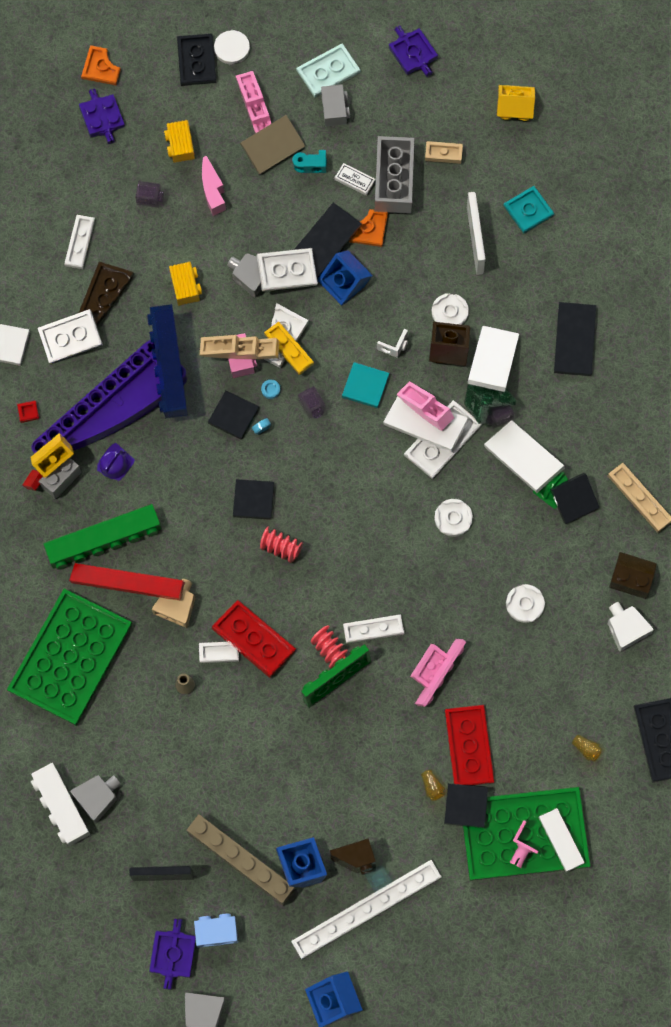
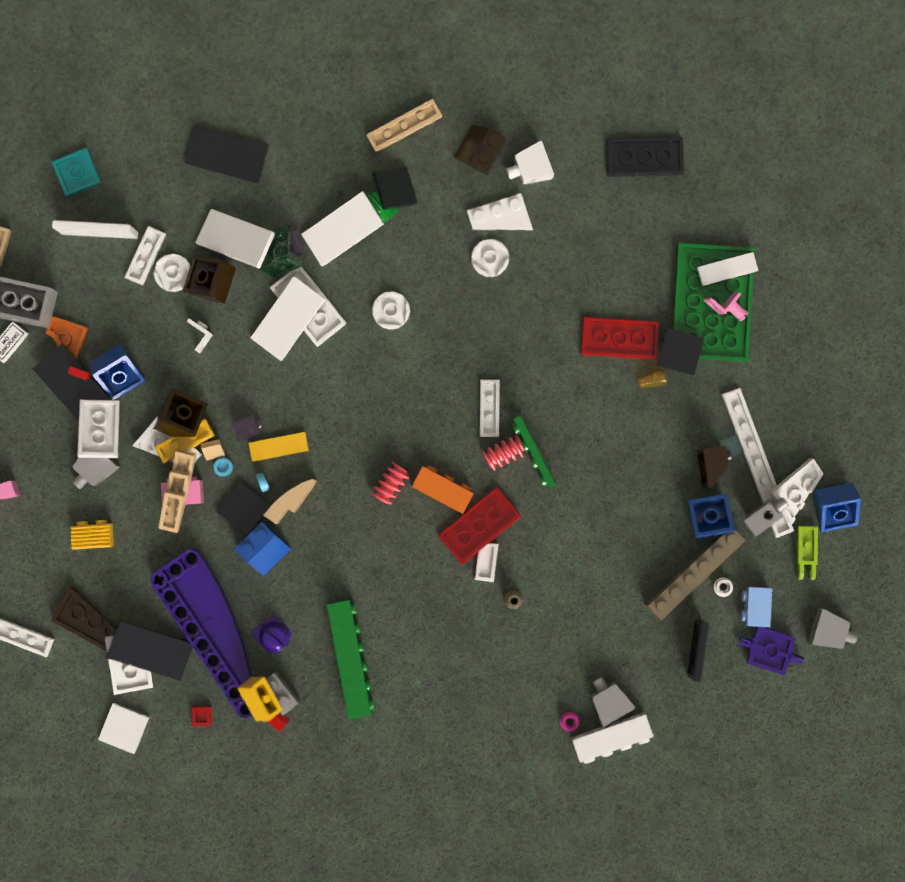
camera: 85 degrees left, 15 degrees up
(69, 657) = (466, 708): green plate -> none
(70, 754) = (573, 726): none -> dark pink plate
(83, 351) = (149, 650): none -> black tile
(127, 581) = (402, 641): red tile -> none
(168, 361) = (178, 566): clear blue brick -> none
(175, 610) = (431, 595): tan torso -> none
(197, 437) = (262, 548): none -> blue slope
(231, 887) = (729, 587): none -> white plate
(247, 454) = (290, 500): none -> tan slope
(253, 499) = (336, 503): black tile -> none
(283, 975) = (807, 550): none -> lime hinge
(284, 596) = (443, 489): none -> orange brick
(285, 375) = (213, 449): none -> tan tile
(299, 436) = (278, 446): none -> yellow tile
(310, 918) = (759, 520): none -> light grey torso
(313, 338) = (180, 415): none -> dark brown slope
(336, 242) = (80, 373): none -> red tile
(343, 950) = (797, 488): none -> white wing
(365, 385) = (236, 371): teal tile -> none
(426, 405) = (273, 314): bright pink slope -> none
(433, 668) = (540, 356): bright pink bracket -> none
(461, 283) = (145, 255): none -> white tile
(571, 607) = (501, 215): none -> white wing
(588, 748) = (642, 227): clear yellow cone -> none

